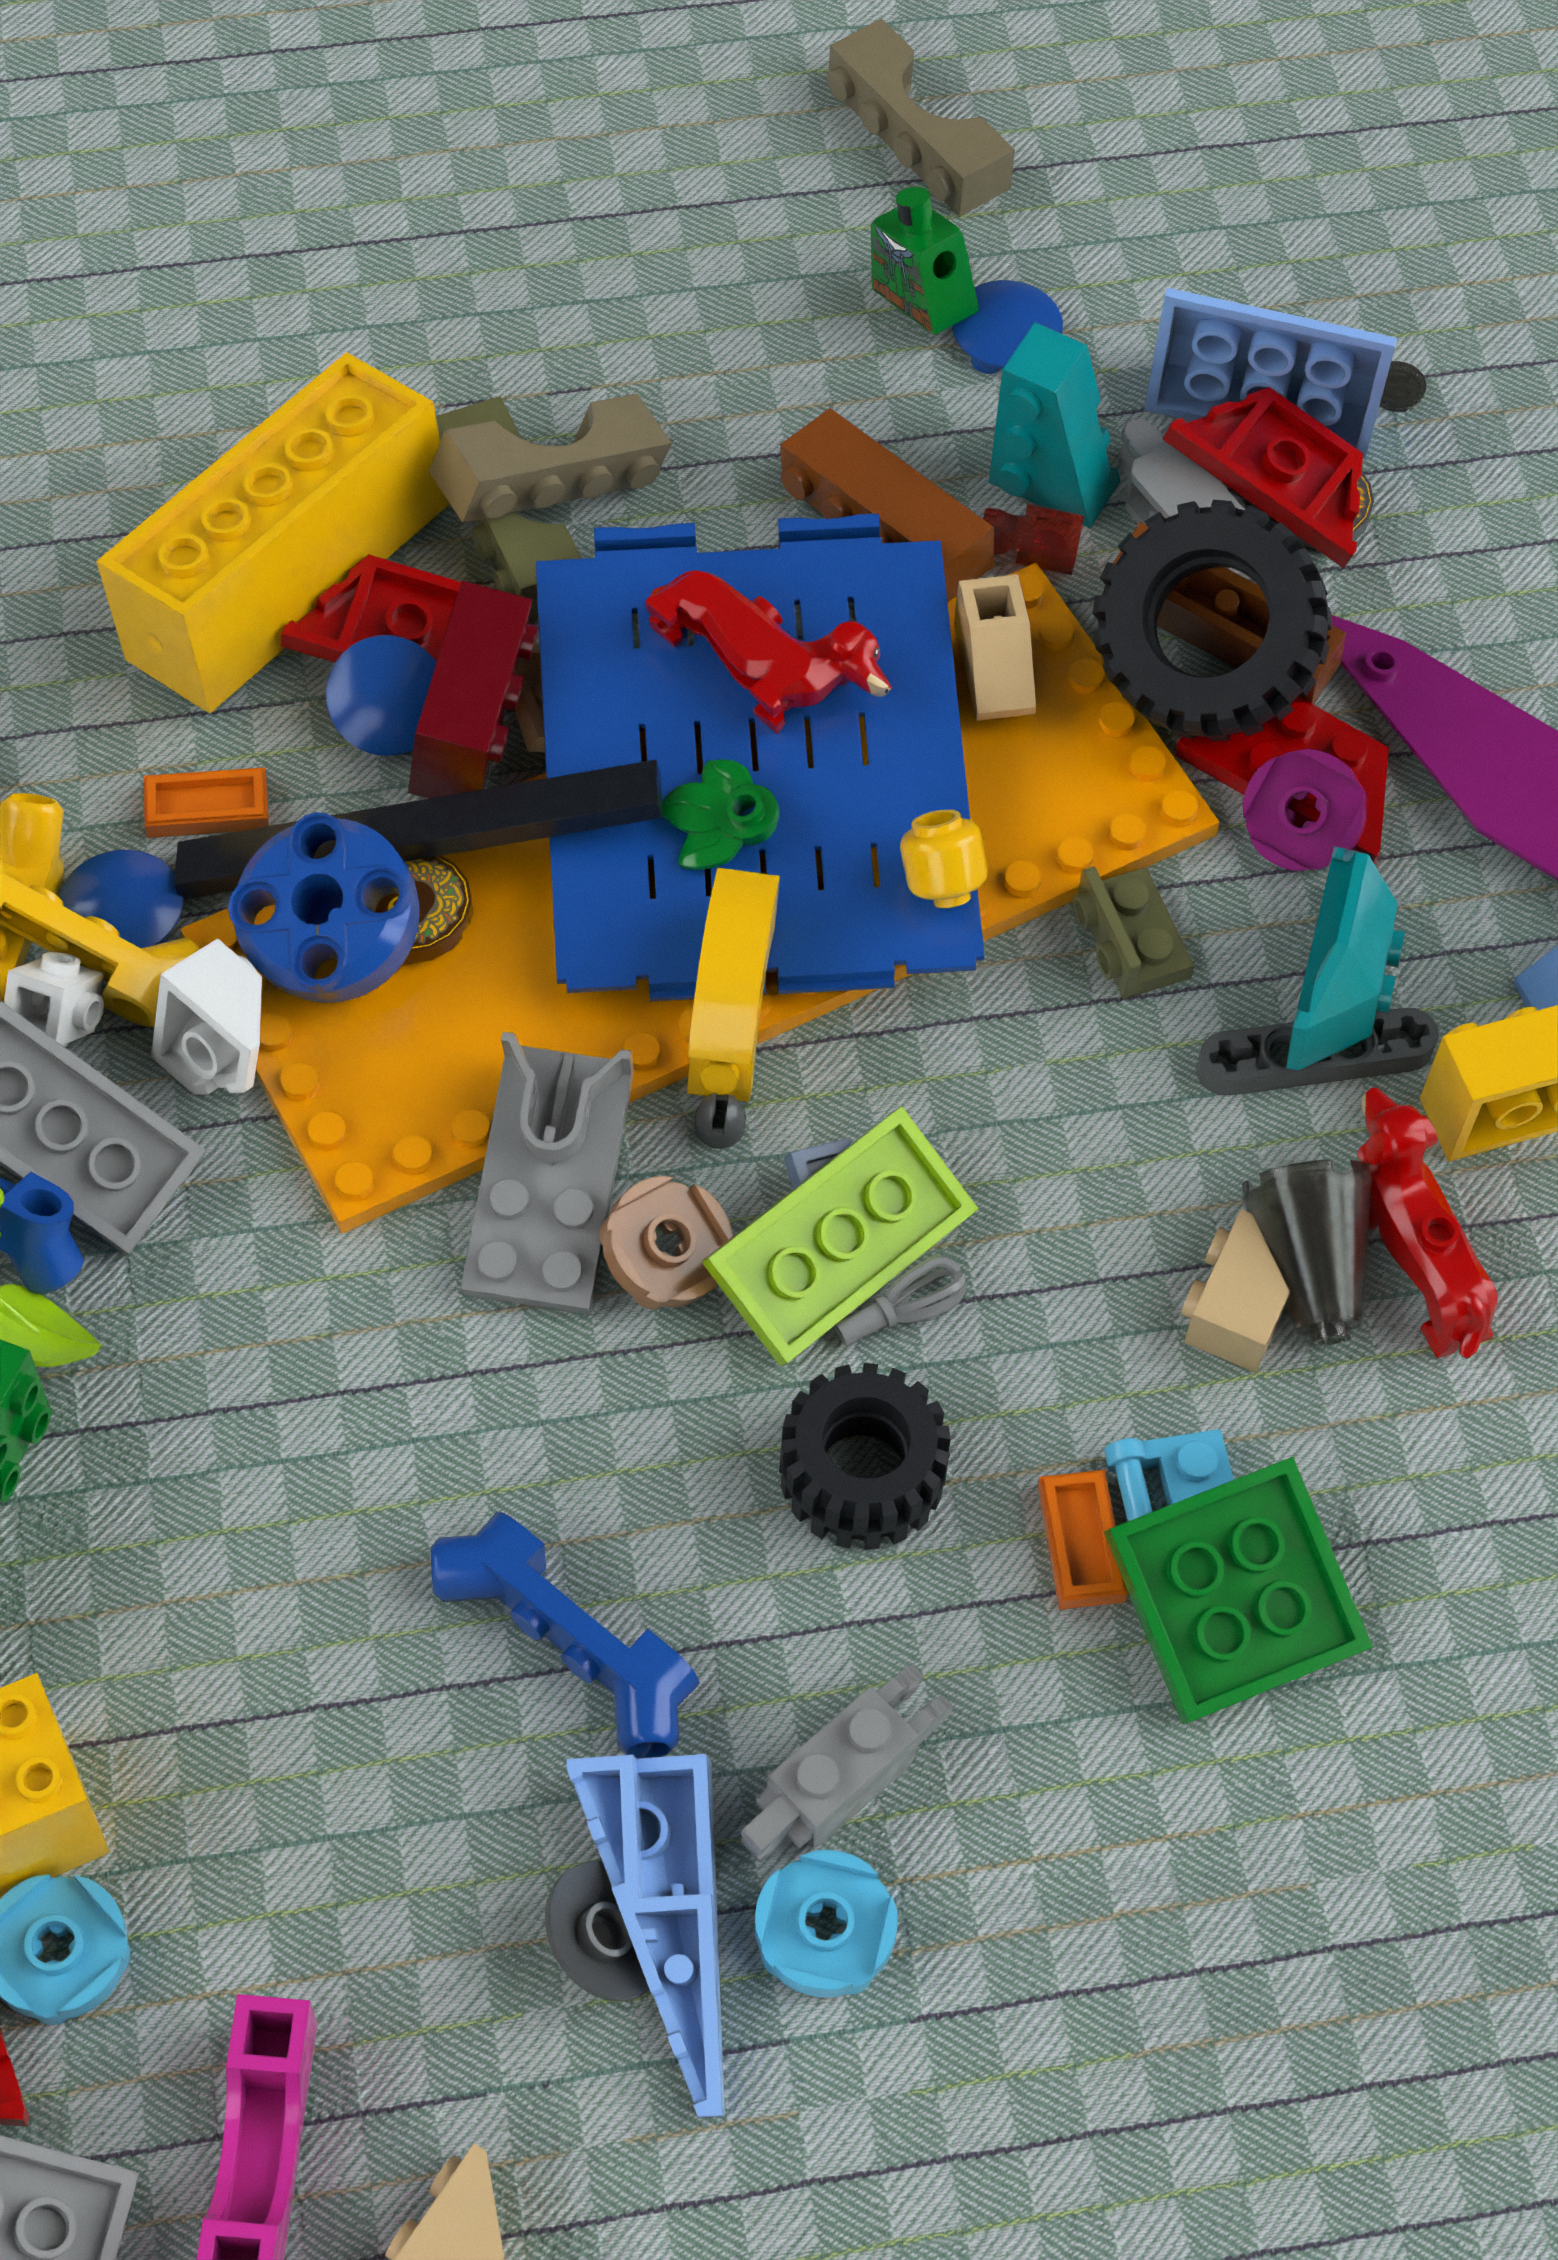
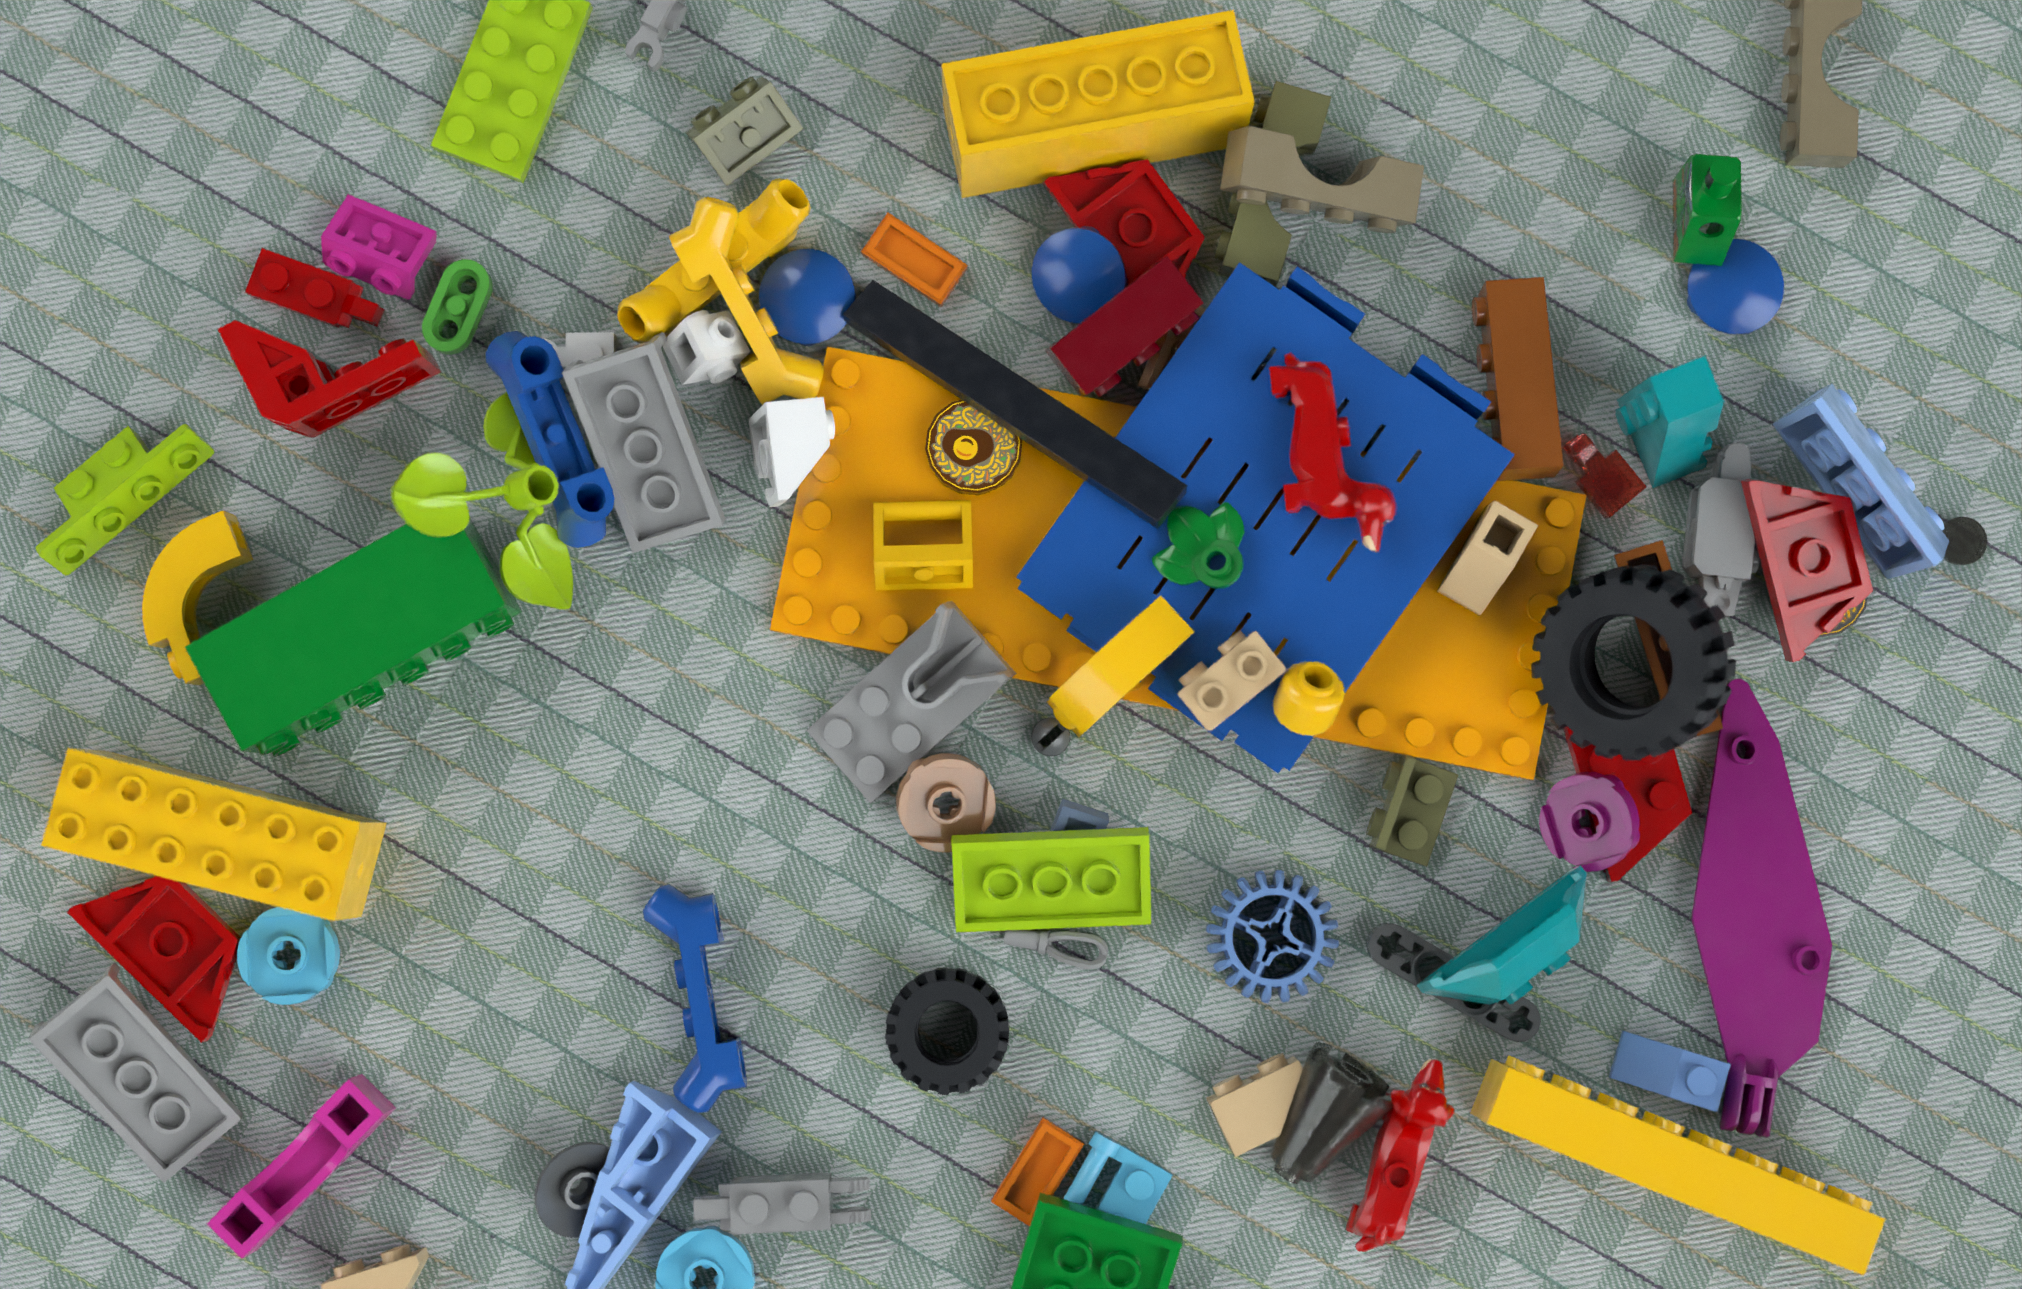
camera: 40 degrees right, 25 degrees up
(326, 909) = (908, 422): blue piece -> none
(445, 1036) = (923, 565): none -> yellow tile
(853, 895) = (1231, 681): none -> tan bracket
(1085, 1155) = (1263, 957): none -> medium blue gear

